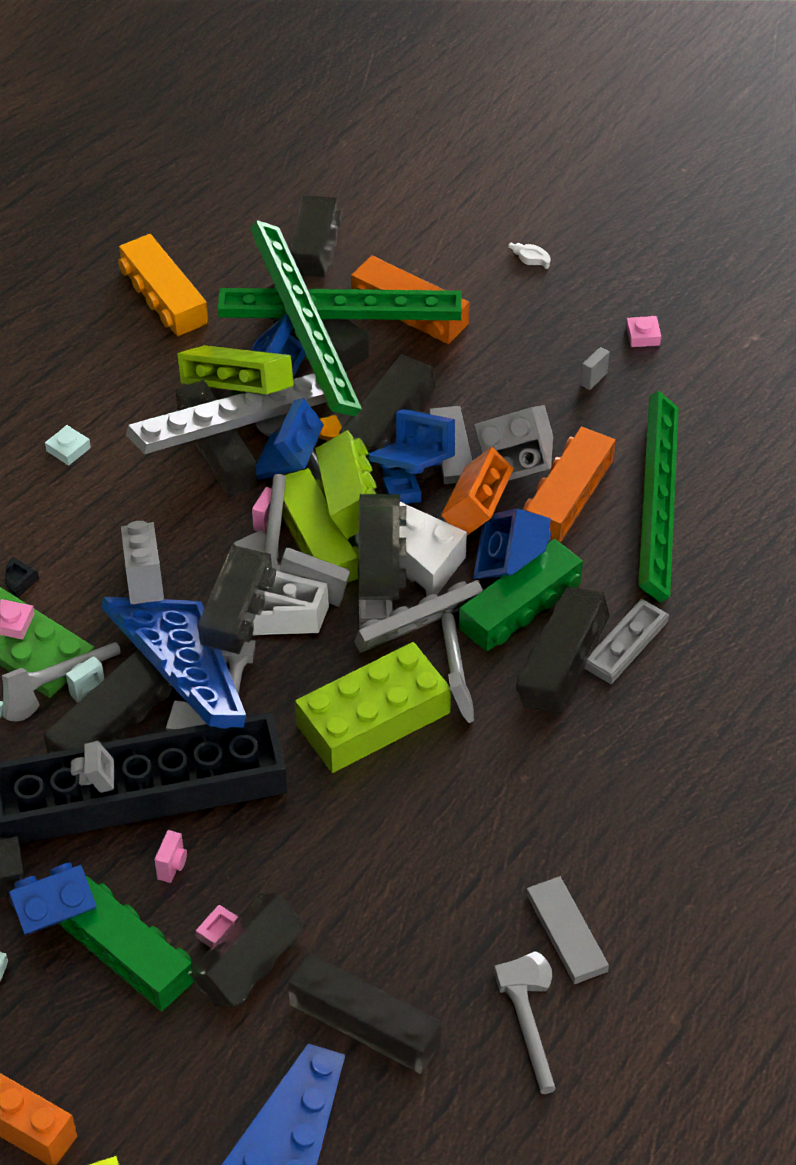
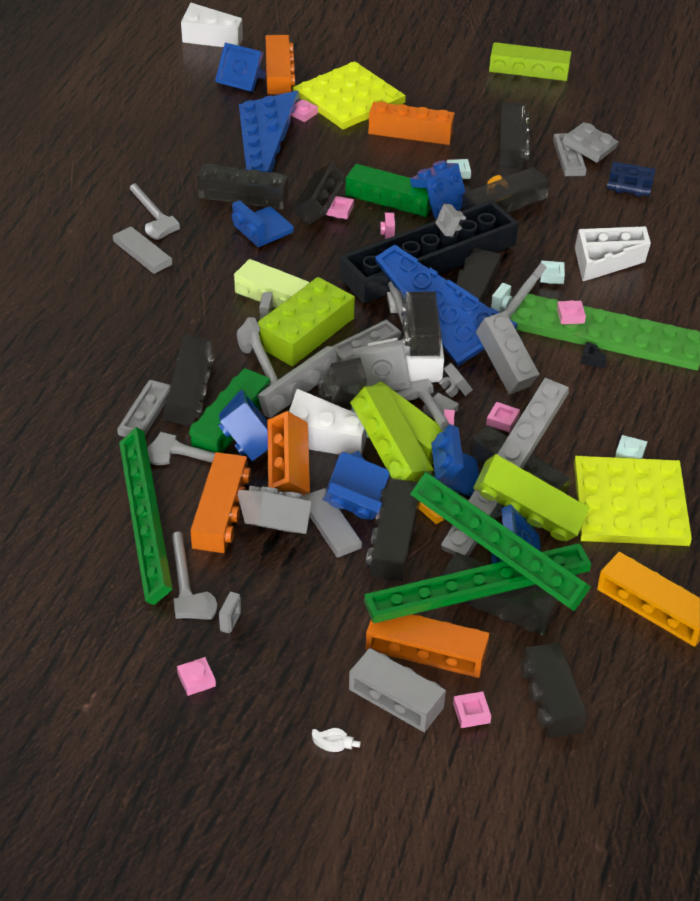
camera: 160 degrees right, 5 degrees down
(105, 389) = (632, 501): none -> neon yellow plate
(190, 512) = (503, 417): none -> bright pink plate
(213, 566) = (456, 381): none -> light grey tile
(301, 671) = (378, 332): none -> light grey tile
(364, 922) = (260, 226): none -> blue bracket
(396, 241) = (472, 709): none -> bright pink plate
(396, 785) = (257, 278): none -> yellowish green brick
(418, 746) = (266, 304): none -> light grey tile
(459, 267) = (397, 689): none -> light grey brick
(615, 582) = (167, 444): none -> light grey piece
(634, 397) = (188, 605): none -> light grey piece

